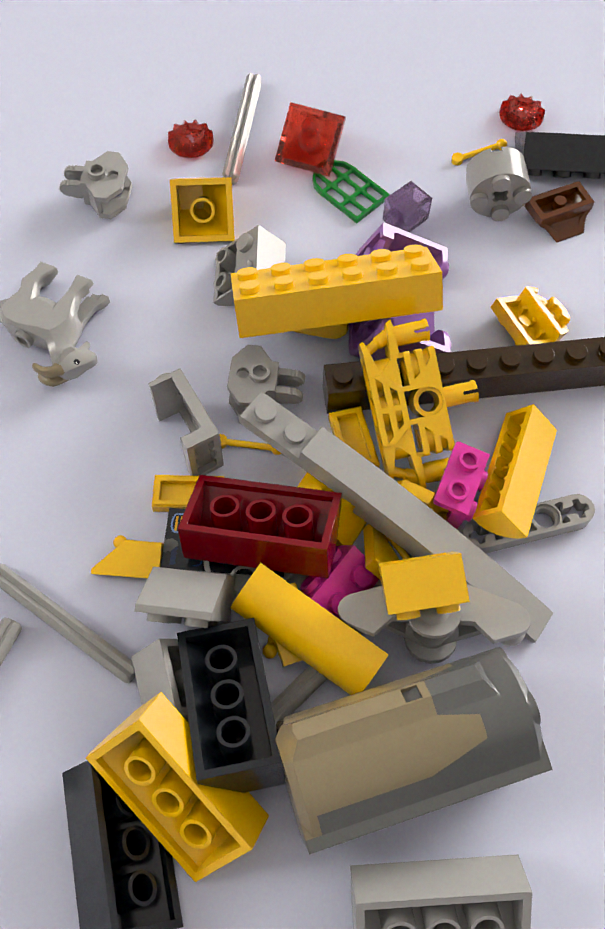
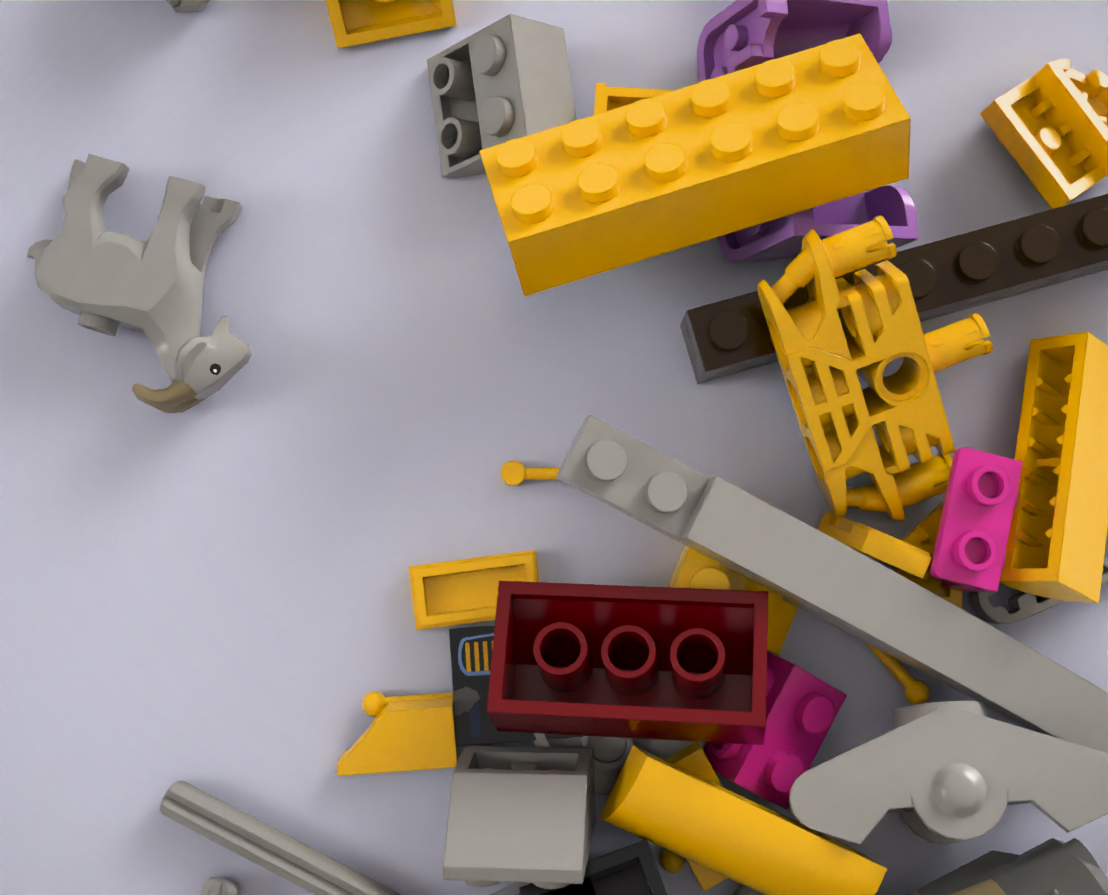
camera: 10 degrees left, 20 degrees up
(202, 446) = (406, 412): light grey panel -> none
(255, 372) = (574, 349): light grey hinge -> none
(352, 429) = (756, 435): yellow tile -> none
(376, 550) = (841, 671): yellow tile -> none
(424, 584) = (940, 752): yellow slope -> none

